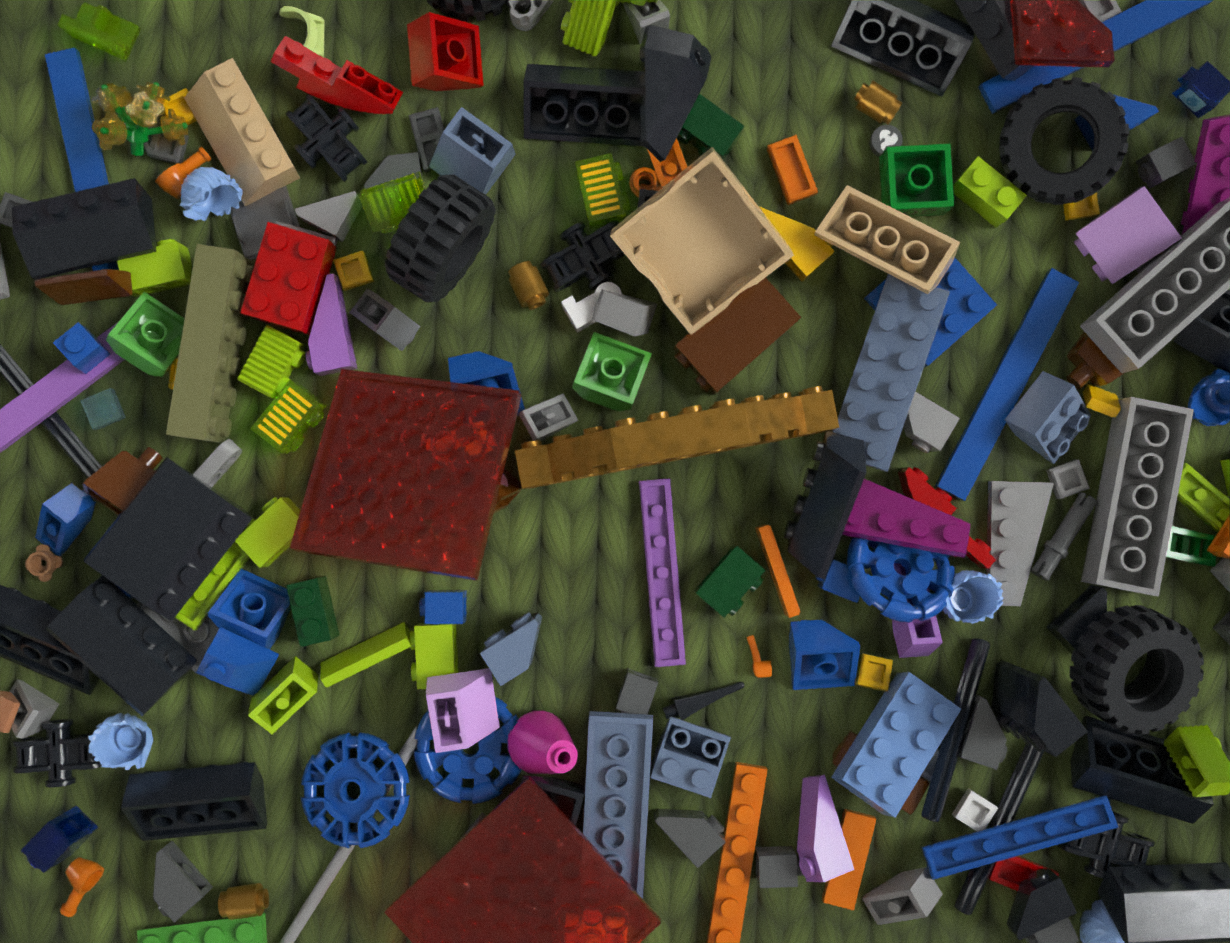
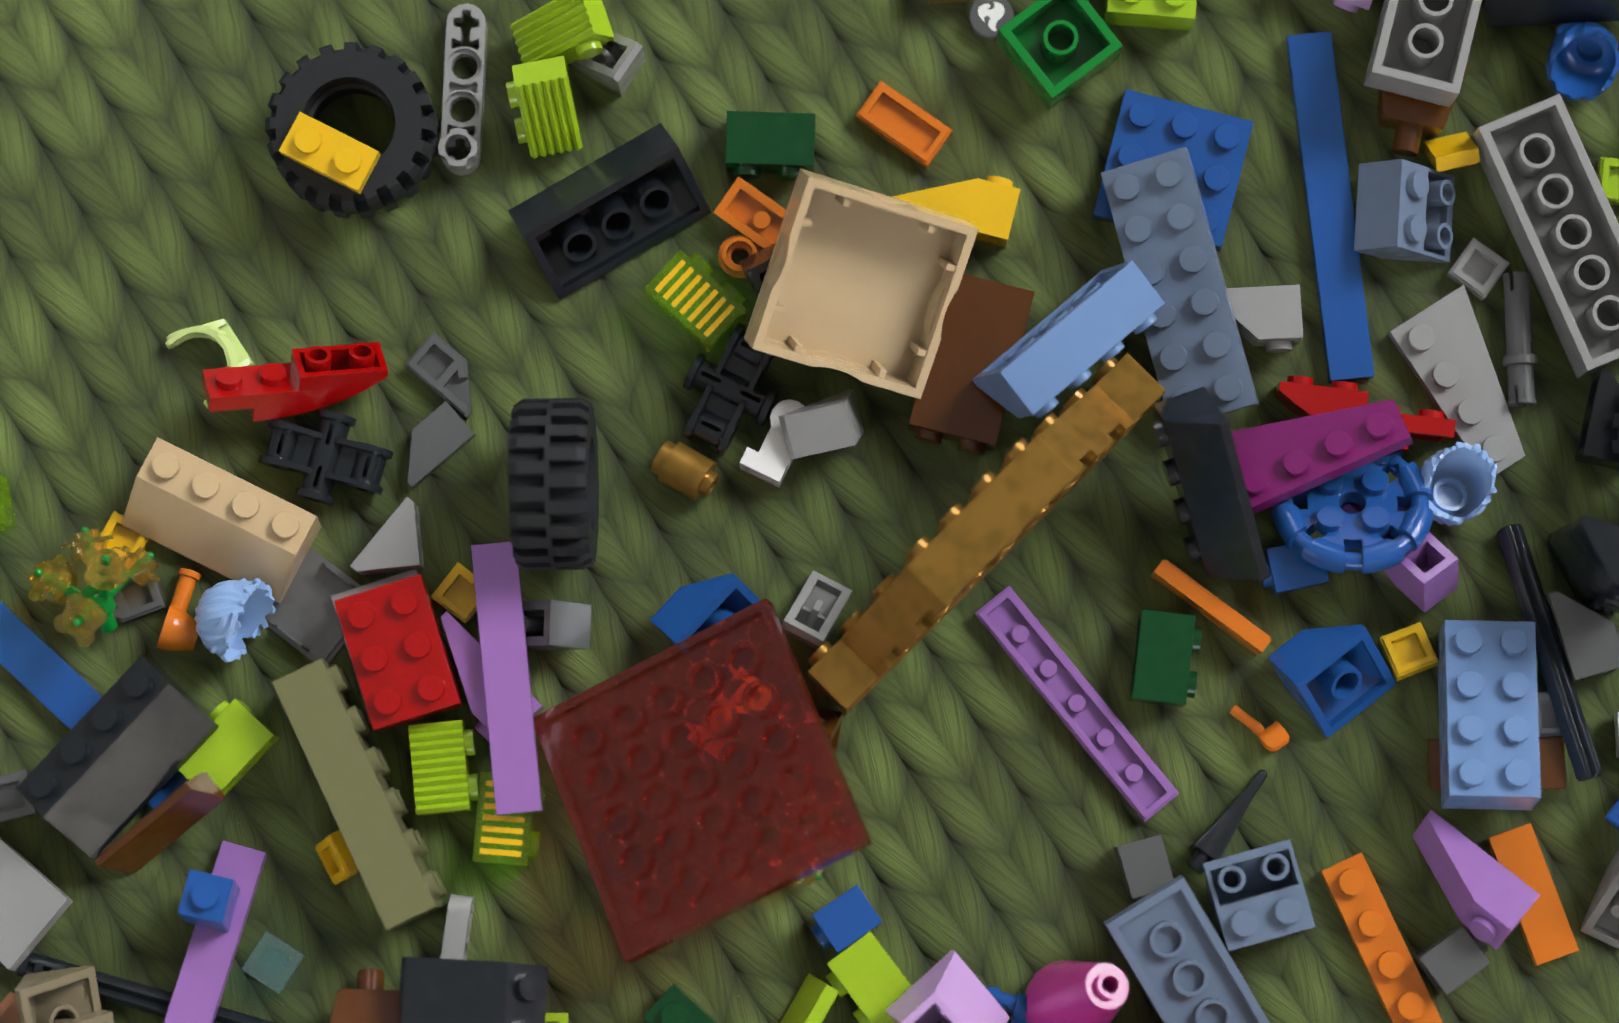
camera: 30 degrees left, 5 degrees down
(148, 336) = (278, 833): bright green slope -> none
(270, 533) = (579, 968): lime brick -> none
(338, 338) = (506, 679): none -> medium lavender tile
(390, 201) = (463, 477): clear neon green brick -> none
(444, 53) = (400, 264): red slope -> none
(472, 152) = (513, 360): sand blue slope -> none
(512, 651) = (966, 909): sand blue slope -> none
(611, 373) = (855, 507): bright green slope -> none
(672, 81) = (698, 116): black wedge -> none
(692, 832) = (1325, 987): dark grey slope -> none
(803, 360) = (1071, 341): none -> medium blue slope
(888, 239) = (1073, 136): tan slope -> none

